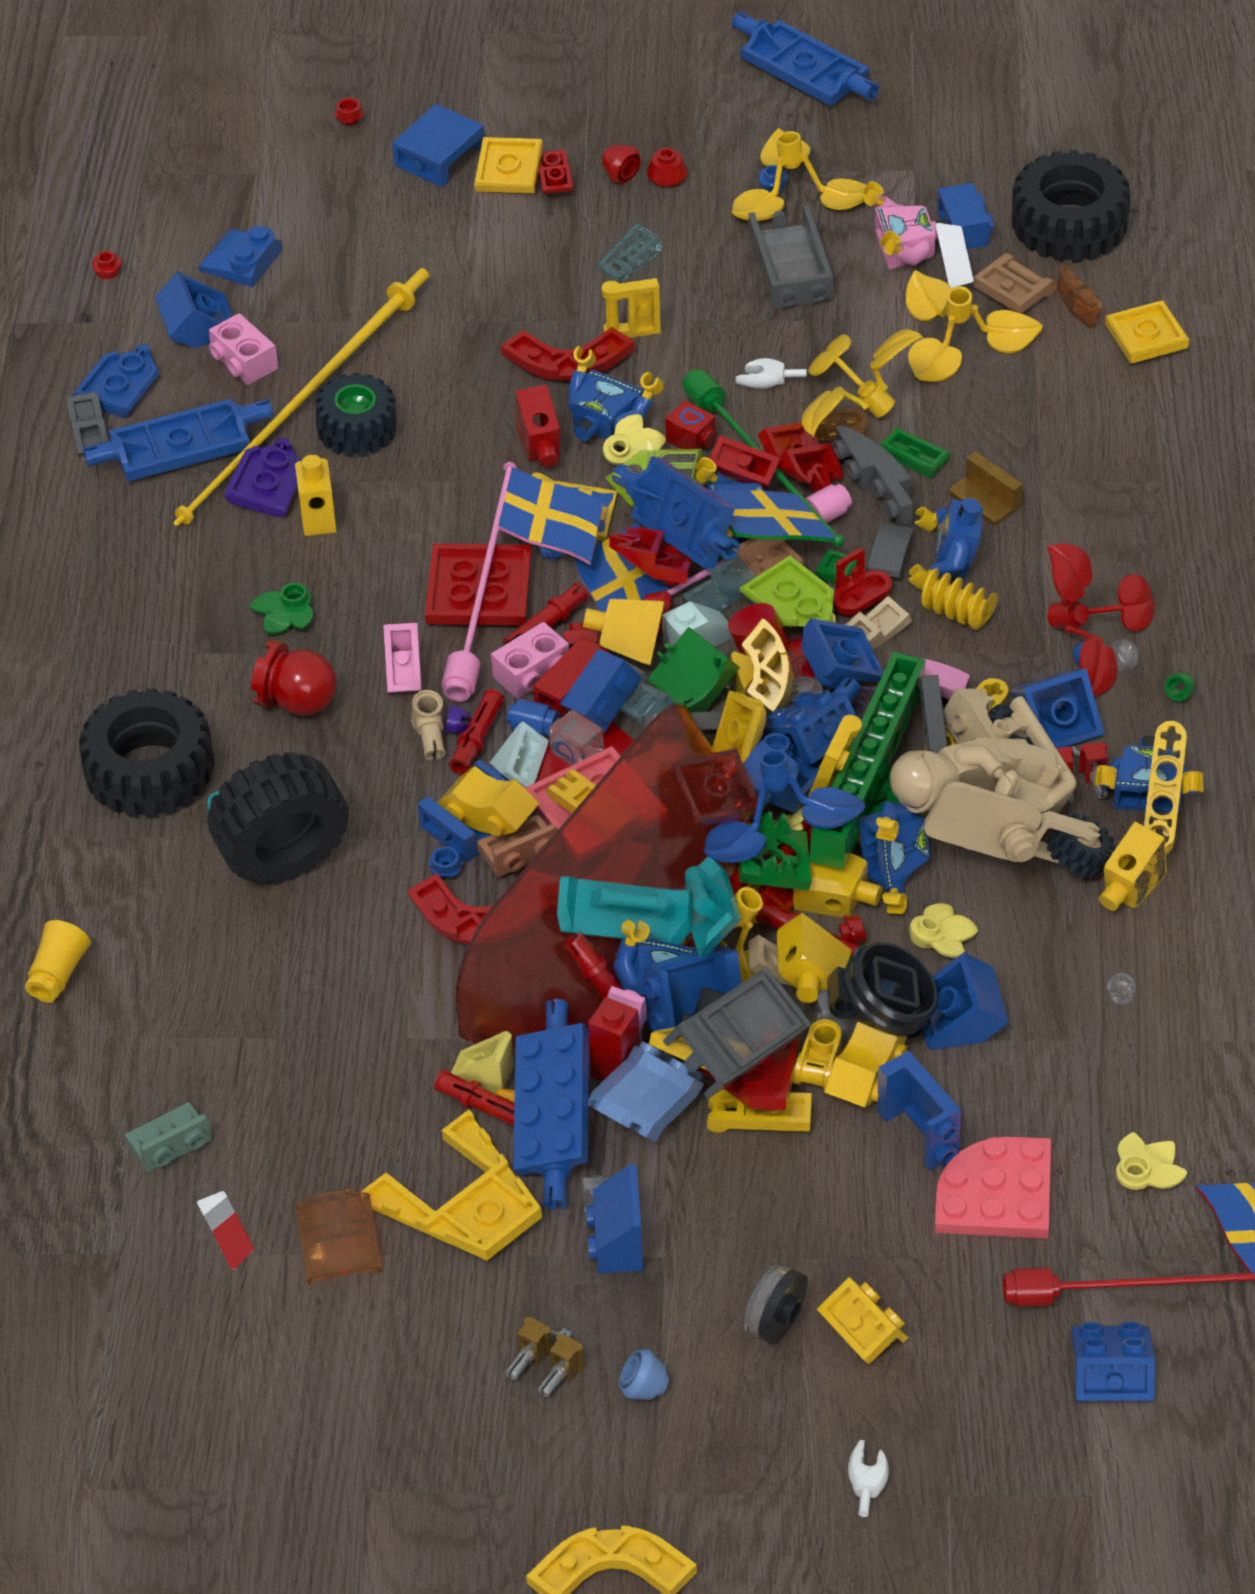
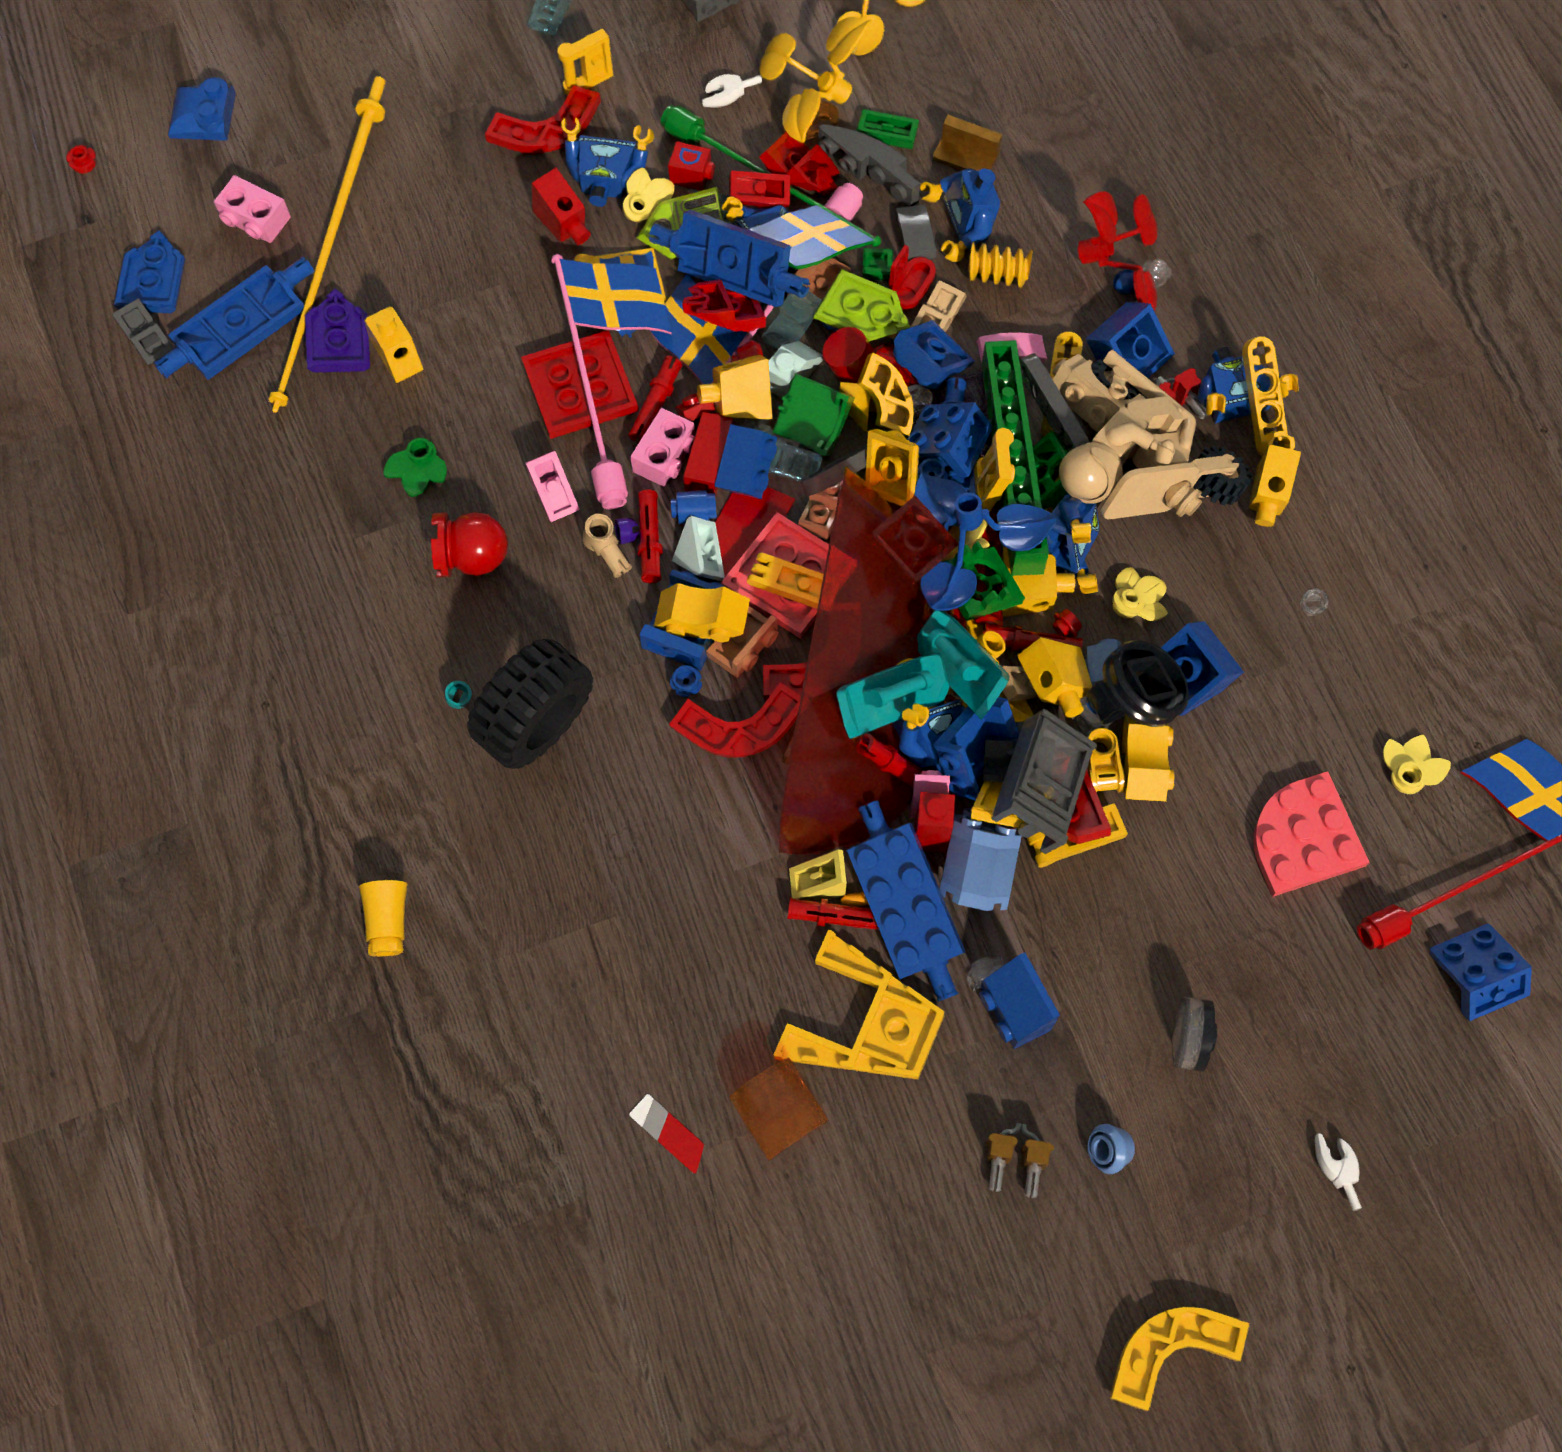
camera: 25 degrees left, 20 degrees up
(150, 784) = (356, 629): black tyre -> none
(169, 1137) = (573, 1059): sand green bracket -> none
(191, 309) = (186, 184): blue slope -> none
(355, 414) = (388, 246): black wheel -> none
(575, 738) = (742, 515): clear brick -> none
(861, 1320) = (1264, 1014): yellow bracket -> none
(910, 1089) = (1224, 786): blue panel -> none
(1175, 680) = (1221, 290): green hinge -> none

